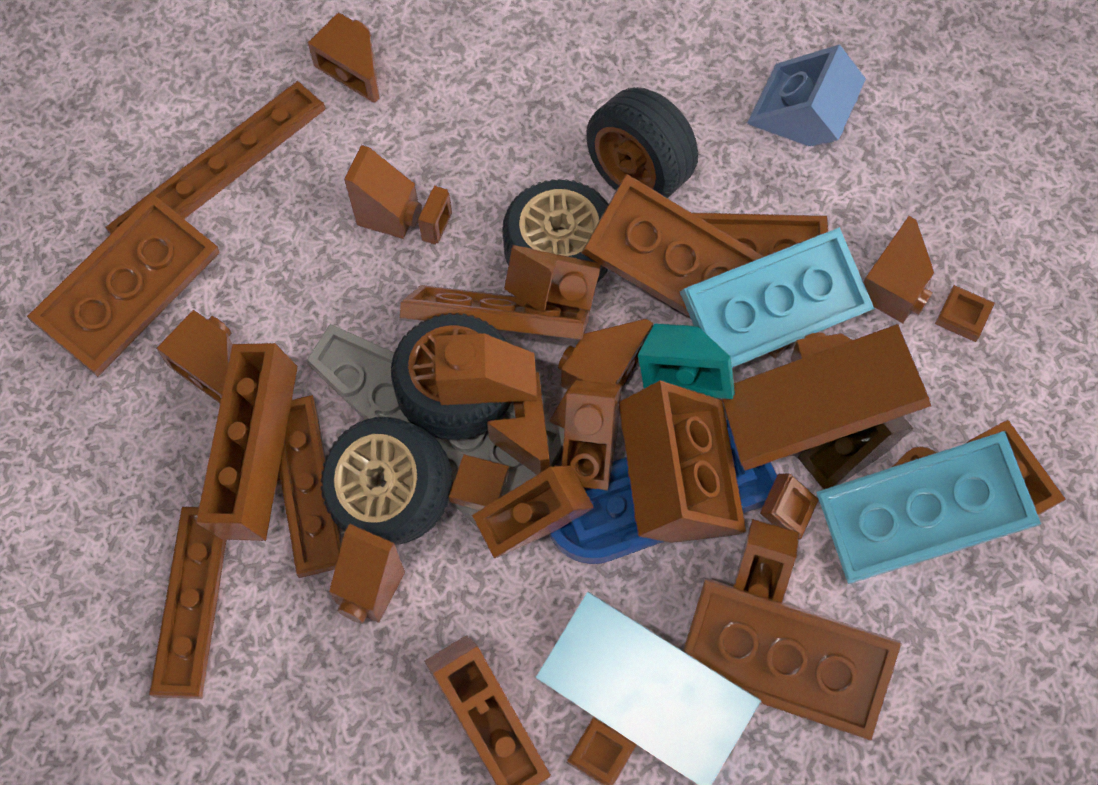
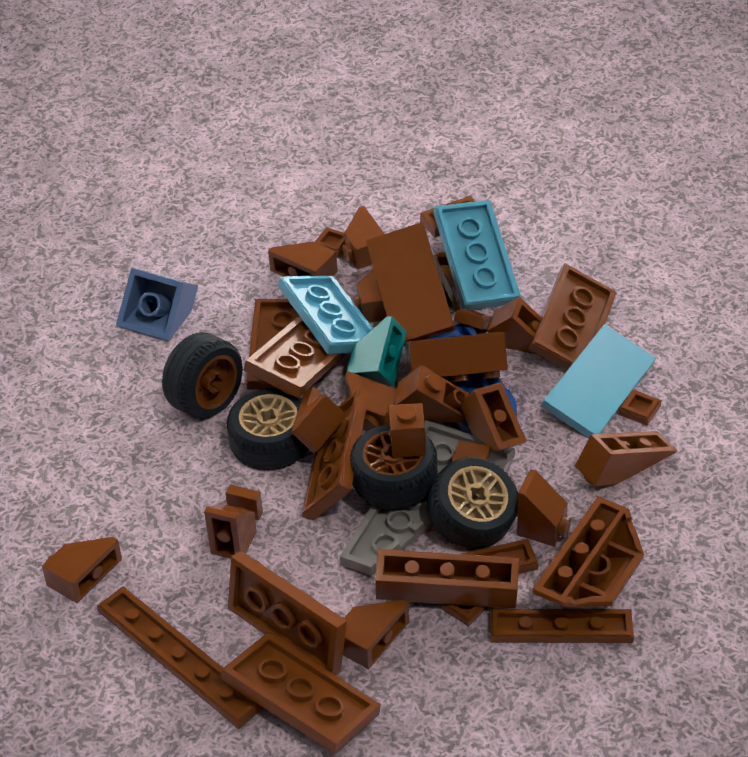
camera: 90 degrees left, 20 degrees down
(229, 252) = (285, 612): none -> dark orange plate
(255, 638) = (594, 559): none -> dark orange wedge
(525, 434) = (442, 426): dark orange slope -> none
(963, 350) = (358, 231): none -> dark orange slope

